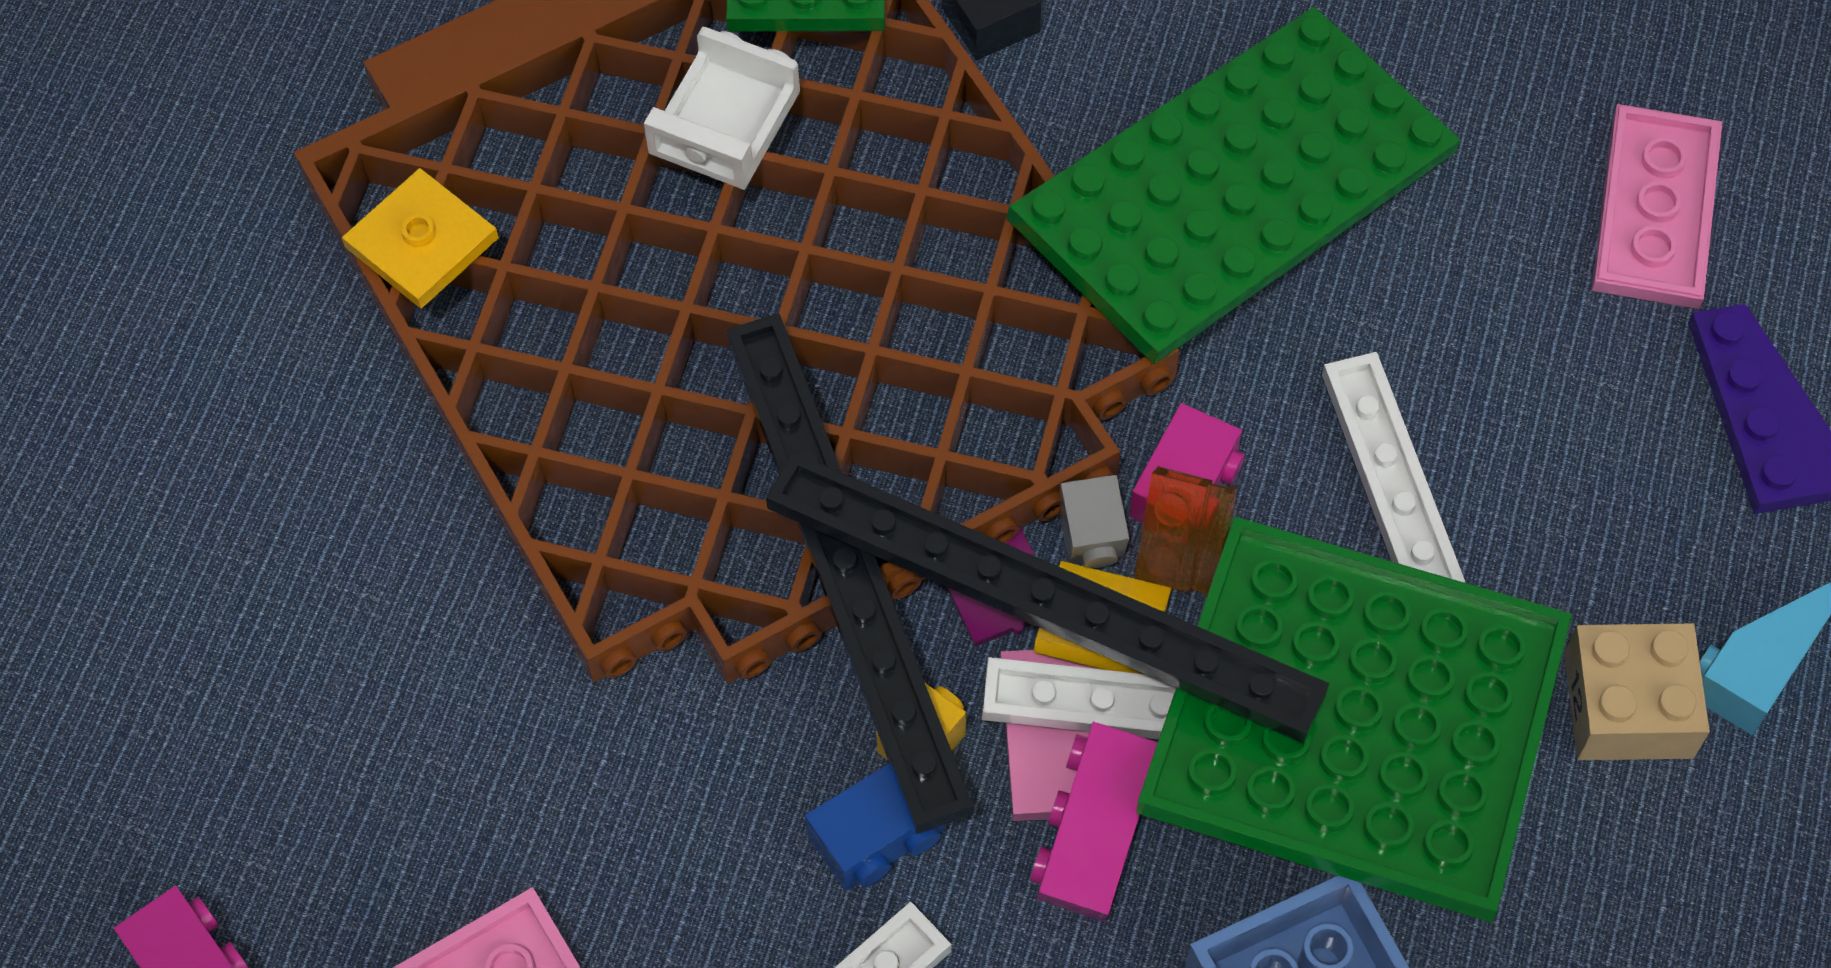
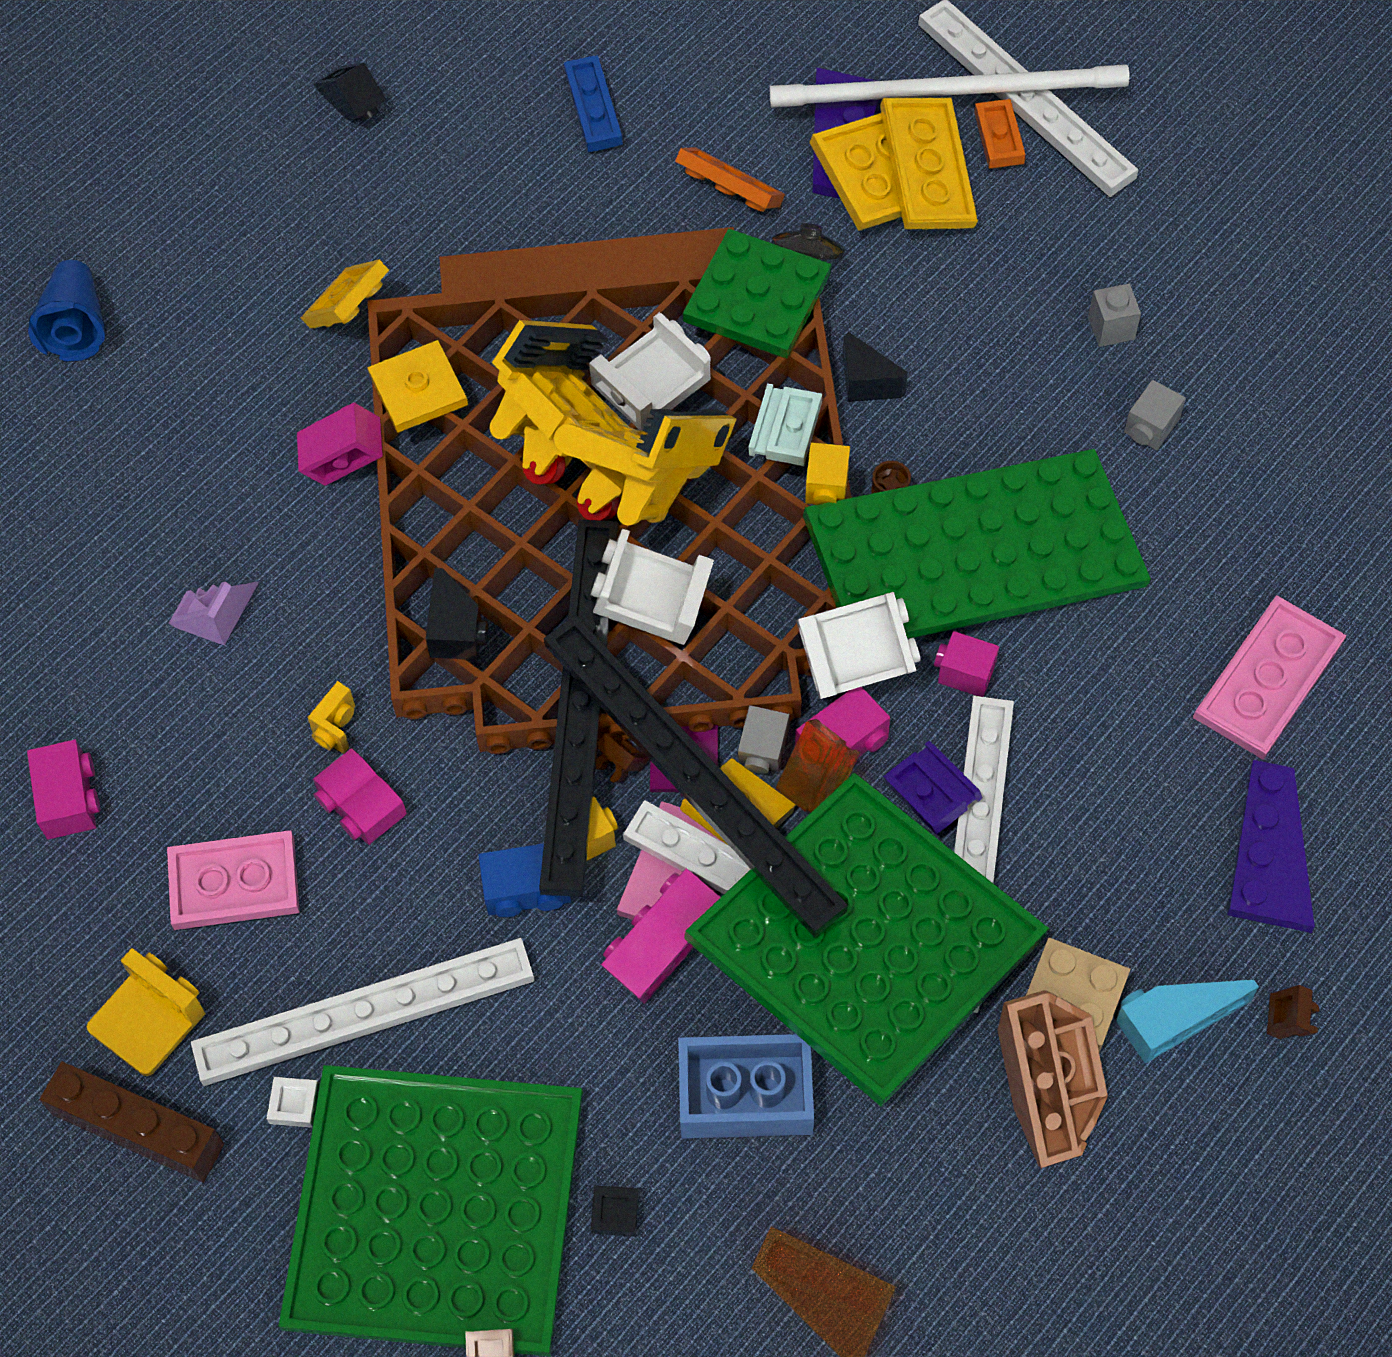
camera: 25 degrees right, 0 degrees up
(258, 155) = (346, 292): none -> yellow plate
(273, 643) = (213, 612): none -> lavender slope
(348, 352) = (339, 444): none -> dark pink brick
(511, 717) = (332, 712): none -> yellow bracket
(601, 806) = (359, 797): none -> dark pink brick
(627, 522) = (453, 621): none -> black slope
(677, 208) = (564, 418): none -> yellow container
(869, 383) = (650, 589): none -> white panel
(923, 612) = (622, 754): none -> reddish brown tile
(929, 112) = (785, 424): none -> light aqua plate
(1015, 154) = (827, 473): none -> yellow brick
(1086, 132) = (890, 476): none -> reddish brown wheel
(1166, 352) = (858, 644): none -> white panel
(1295, 328) = (966, 663): none -> dark pink brick
(1333, 497) = (932, 787): none -> dark purple plate
(1666, 796) = (1052, 1073): none -> nougat wedge

